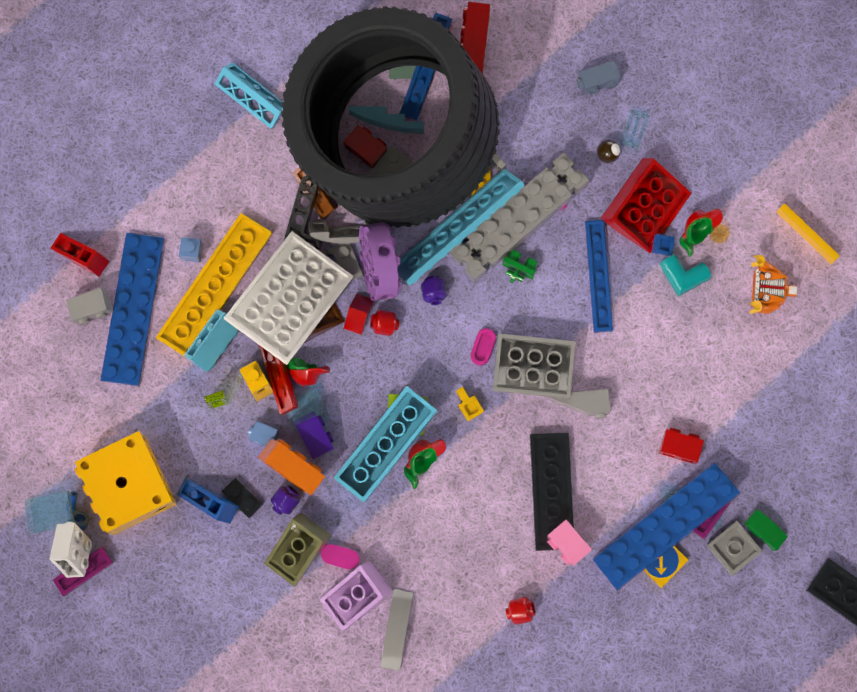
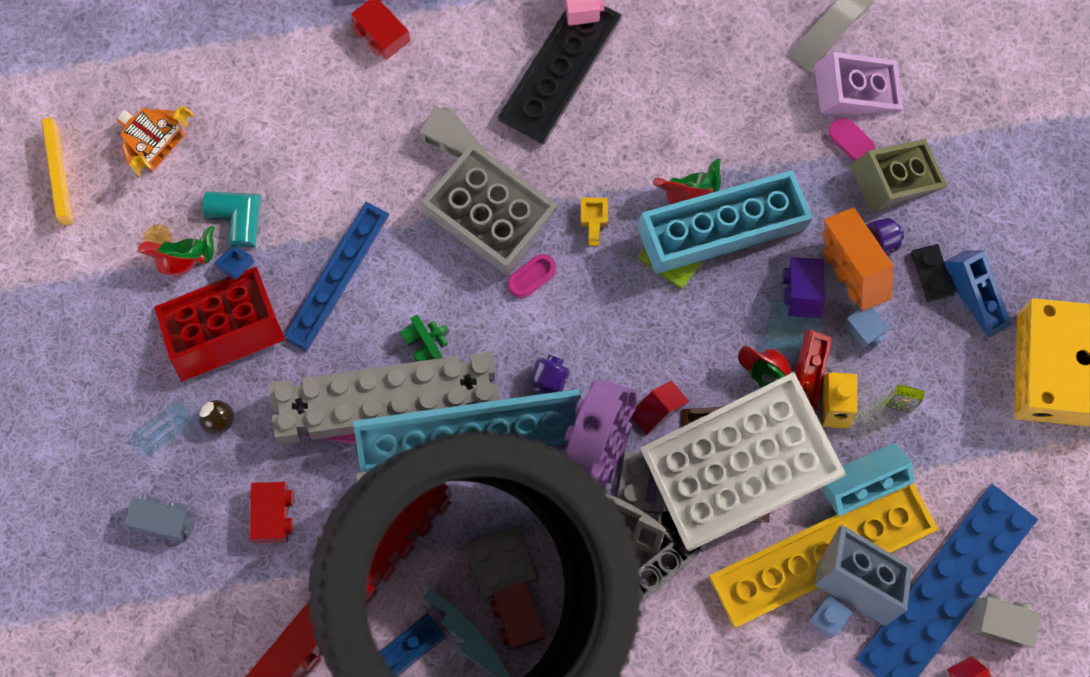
camera: 150 degrees left, 5 degrees down
(183, 282) = (864, 576): none -> sand blue slope
(384, 323) = (635, 372): red head -> none
(540, 118) = (270, 512): none -> red brick

